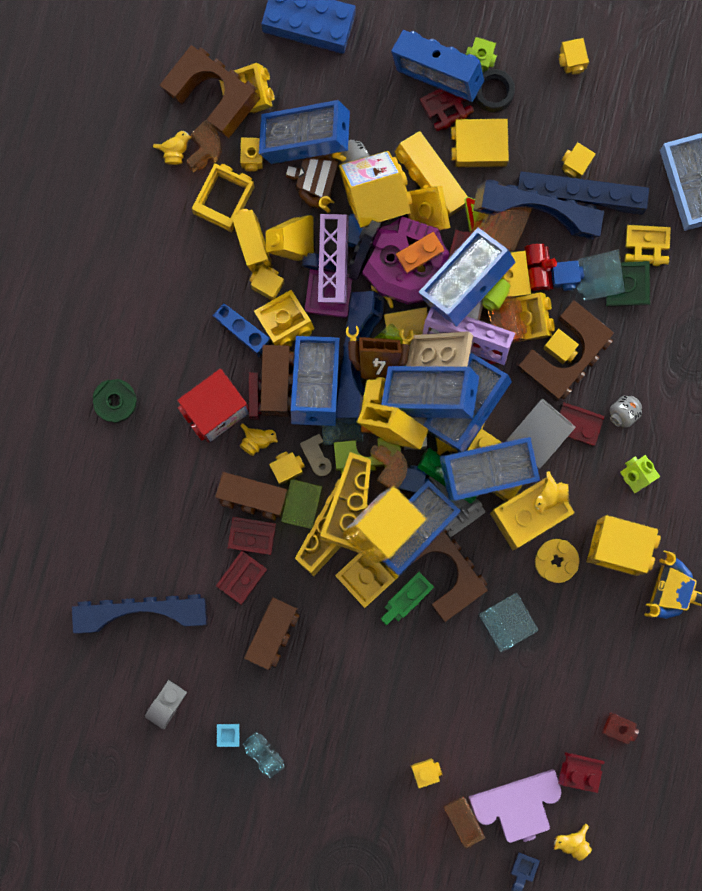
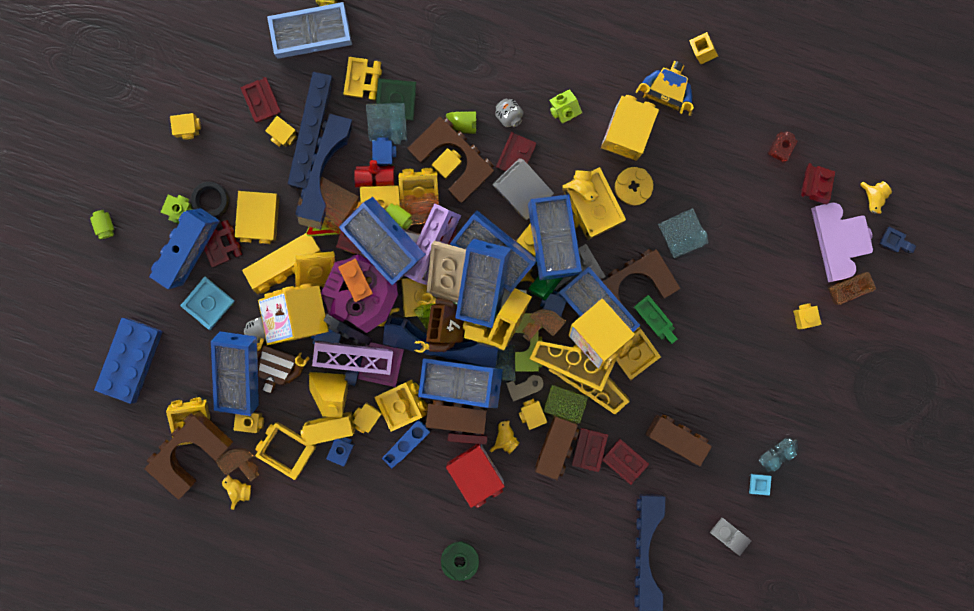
camera: 85 degrees left, 5 degrees up
(228, 257) = (340, 451): none -> blue brick
(379, 98) = (207, 303): none -> medium azure plate
(610, 361) = (463, 121): none -> lime brick
(611, 135) = (260, 100): none -> dark red plate

